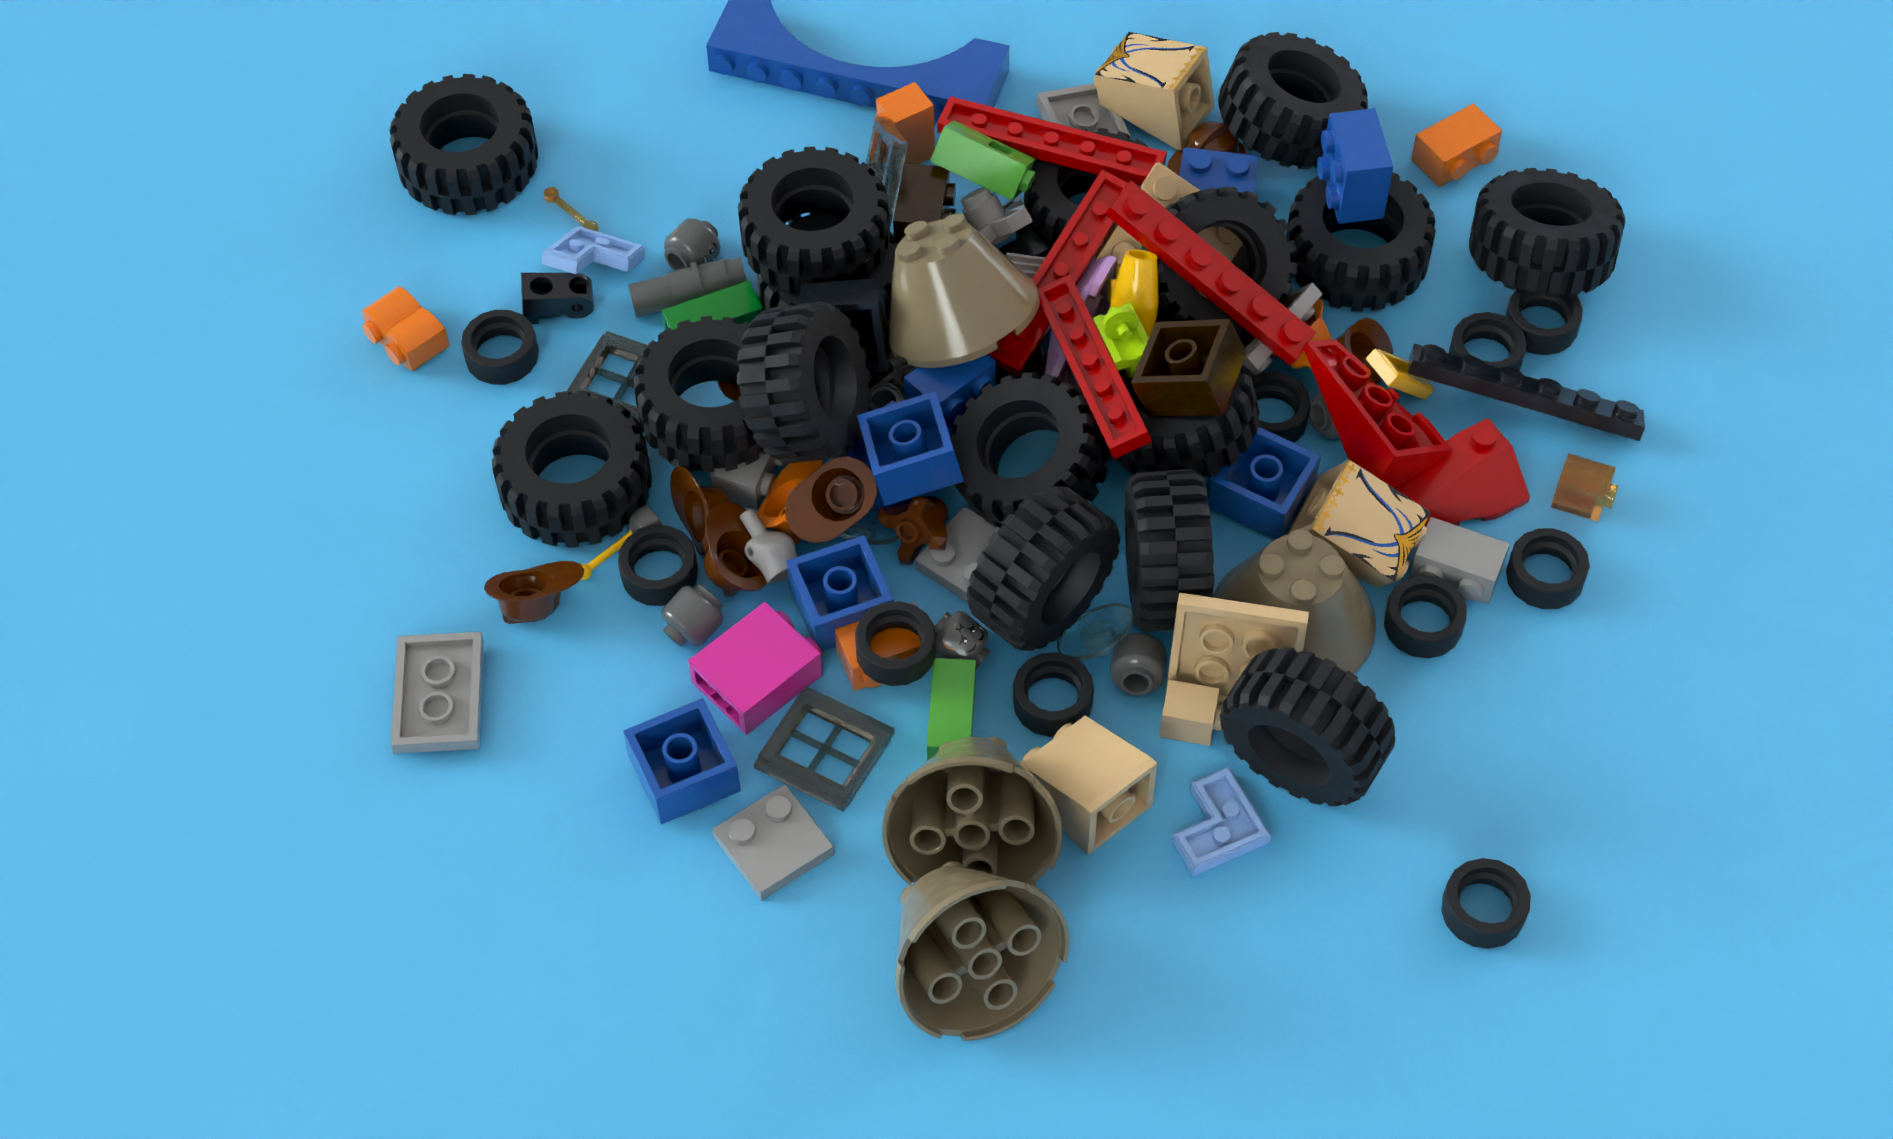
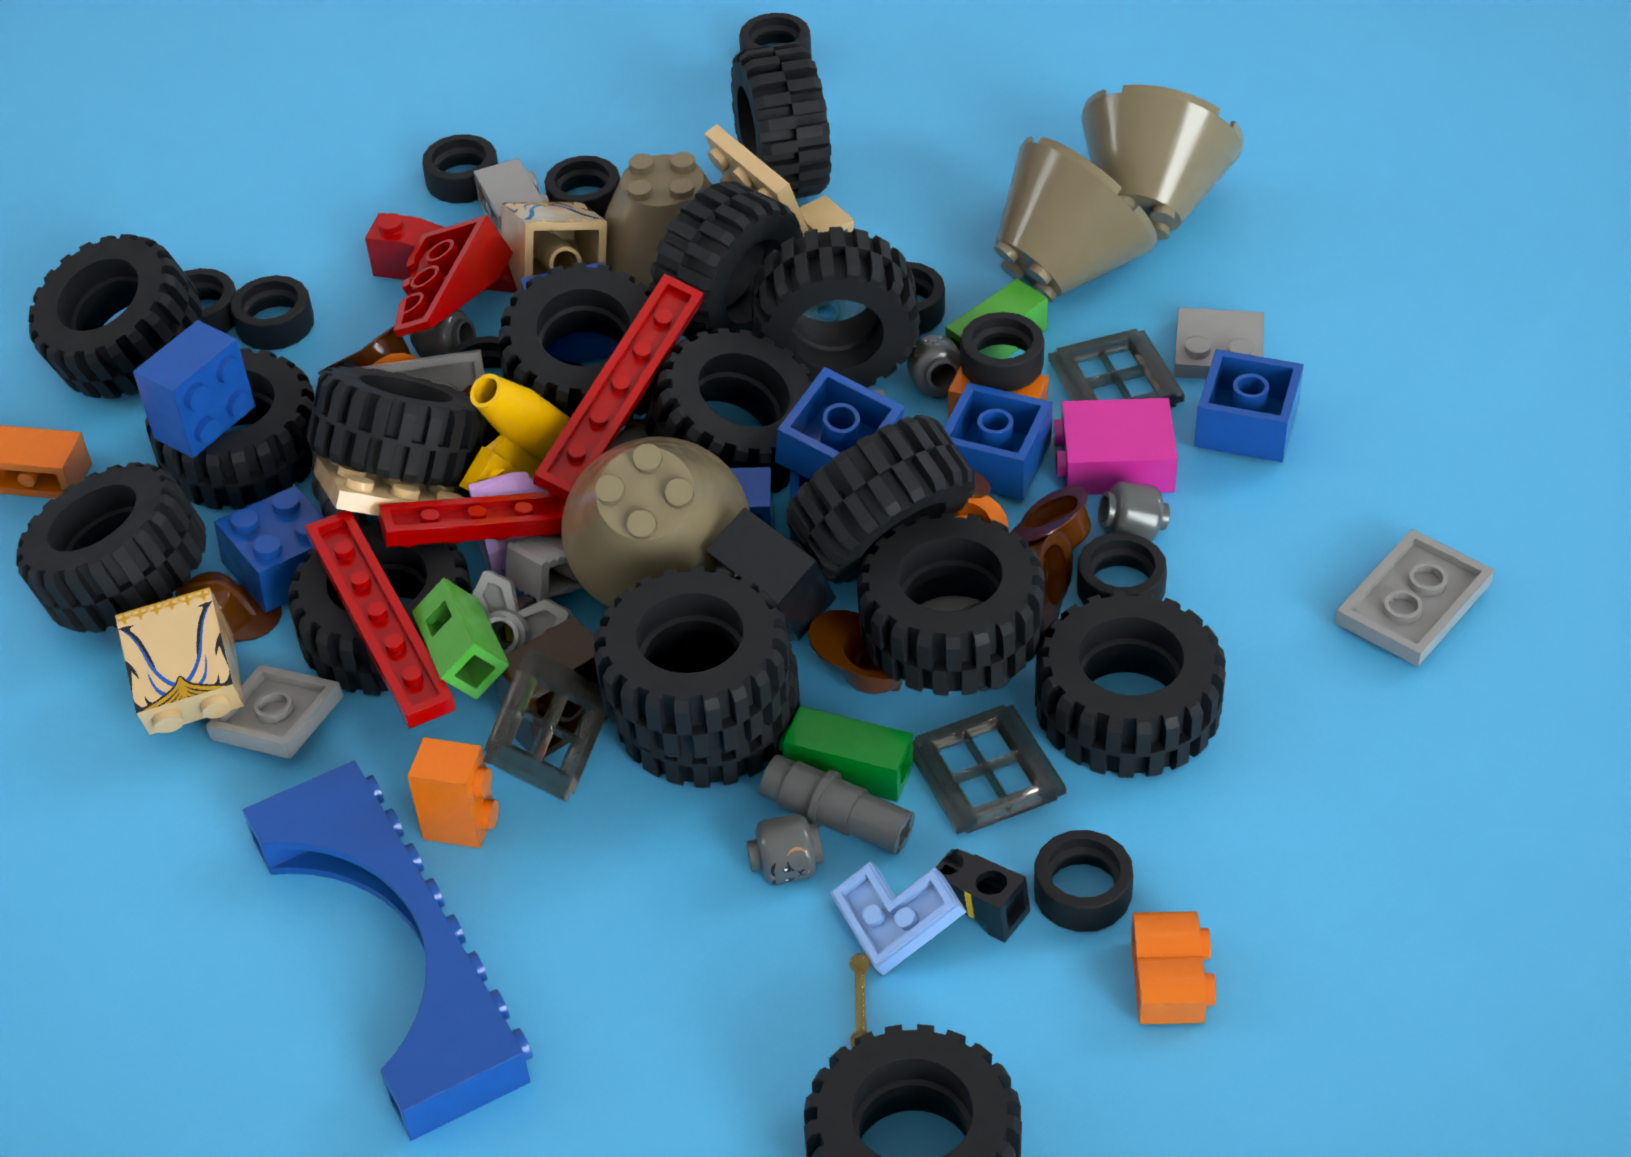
camera: 135 degrees left, 10 degrees down
(532, 592) = (1255, 604): reddish brown piece -> none
(767, 548) = (1021, 499): light grey piece -> none
(1094, 780) = (952, 215): tan slope -> none
(1123, 337) = (574, 368): lime hips -> none
(1189, 368) = (575, 284): dark brown brick -> none
(1210, 272) = (439, 375): red plate -> none
(1230, 825) = (879, 170): light blue tile -> none
(1395, 374) = (368, 316): yellow tile -> none
(1538, 395) = (305, 255): black plate -> none
(1585, 487) = (361, 190): clear orange brick -> none

